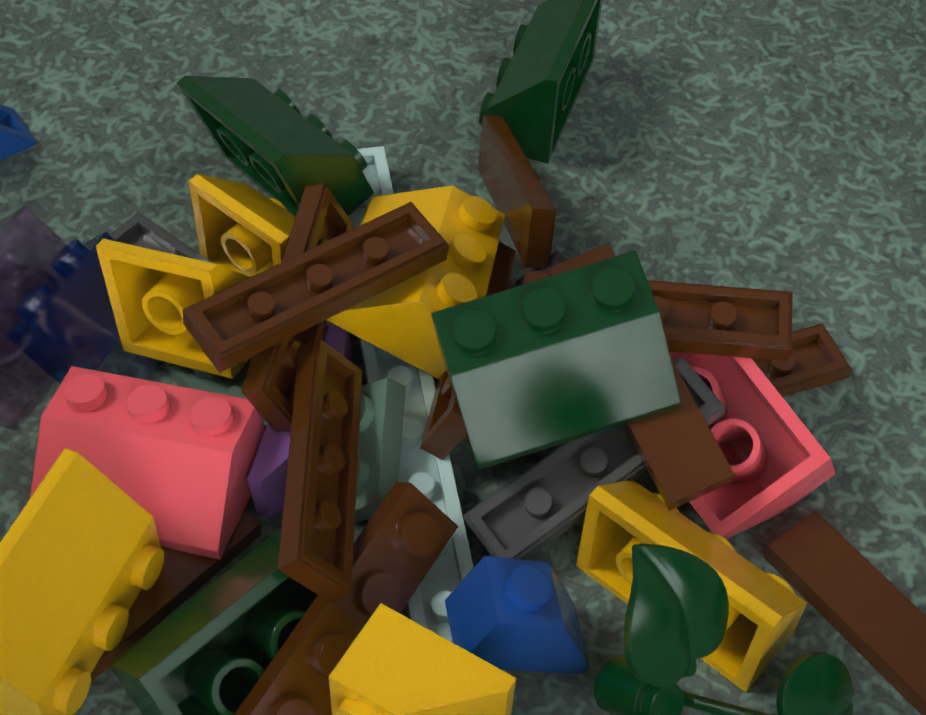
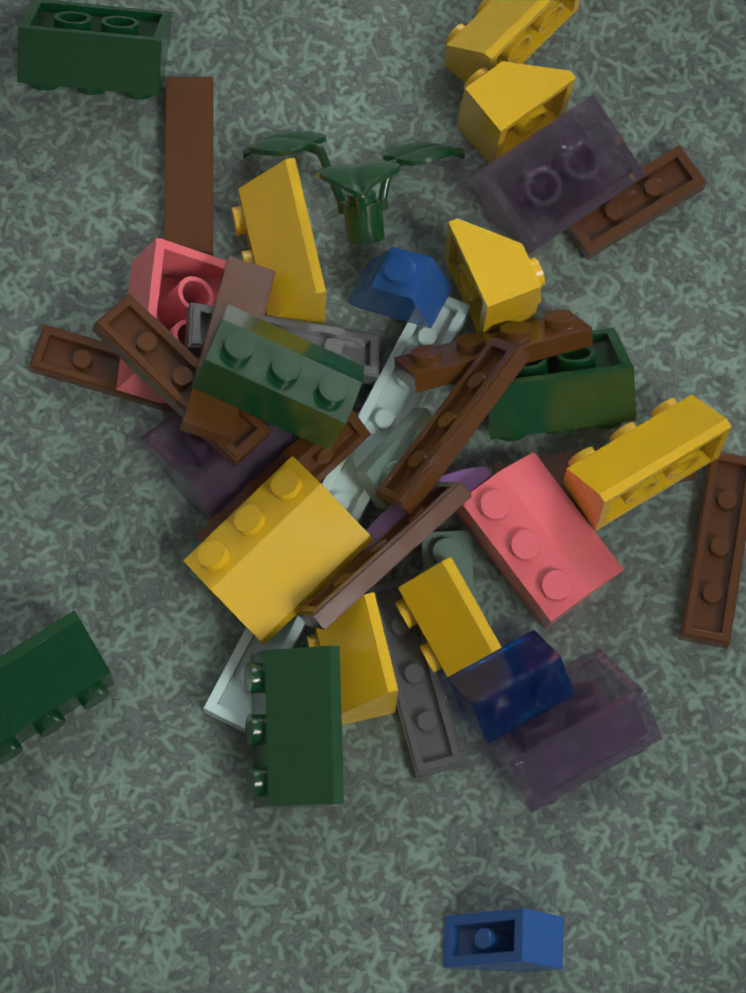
camera: 145 degrees left, 20 degrees up
(314, 286) = (378, 528): reddish brown tile -> none
(516, 192) = (161, 573): reddish brown tile -> none

